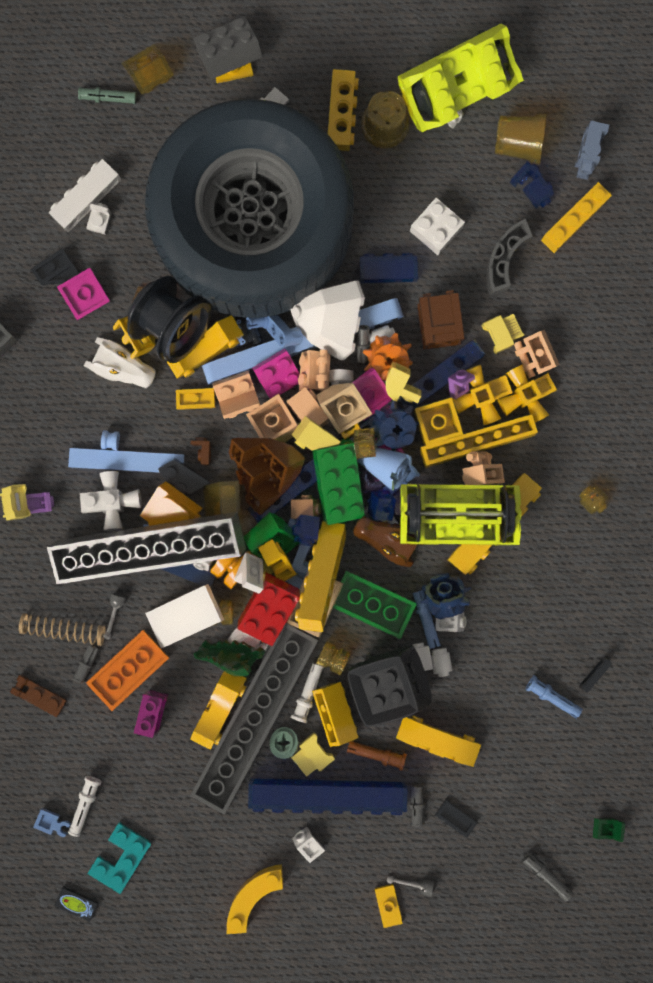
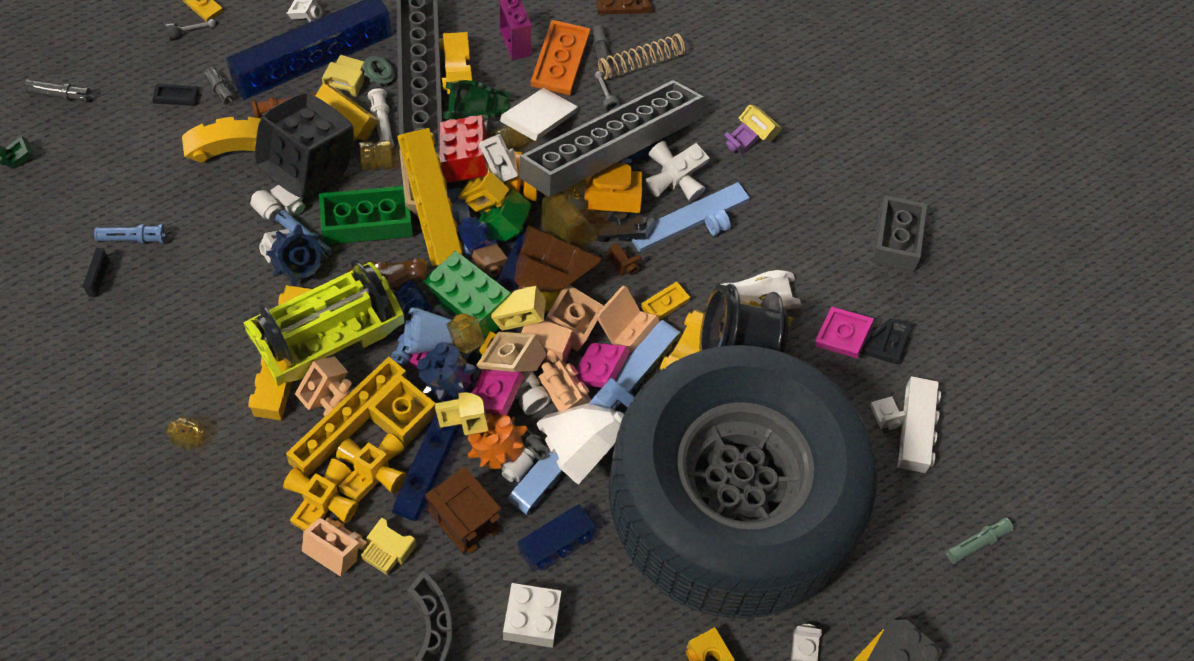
camera: 140 degrees right, 25 degrees down
(148, 69) = (962, 593): clear yellow slope -> none
(459, 383) = (403, 458): medium lavender bracket -> none

